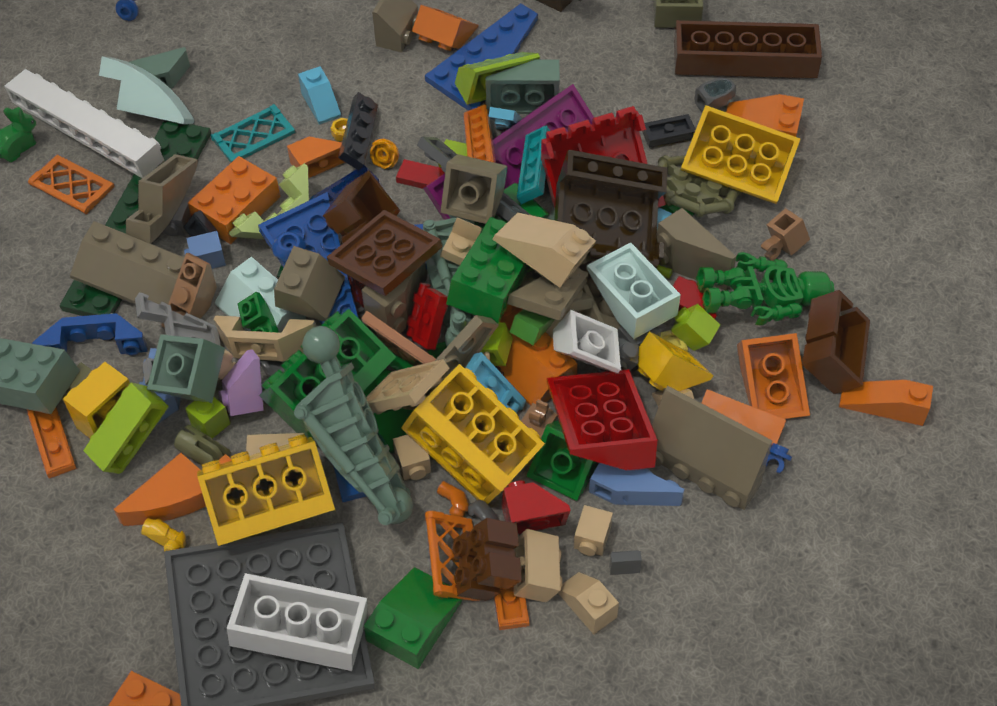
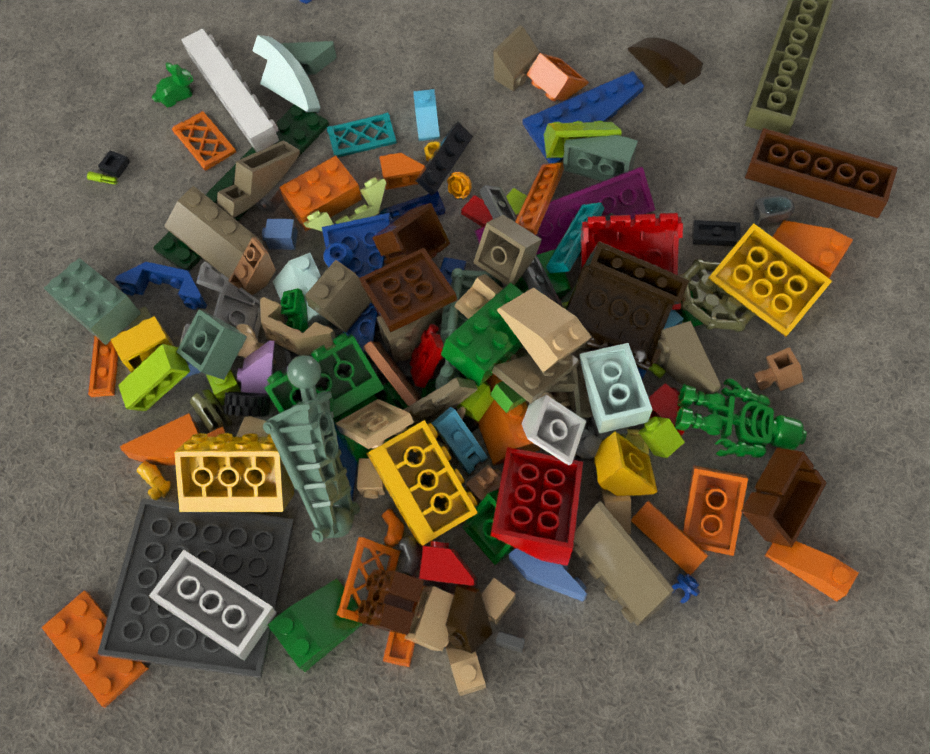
camera: 25 degrees right, 10 degrees up
(199, 224) = (282, 209): black tile -> none
(243, 423) = (246, 404): none -> black tyre
(503, 118) = (569, 183): medium azure plate -> none
(574, 550) = (468, 619): none -> dark brown slope

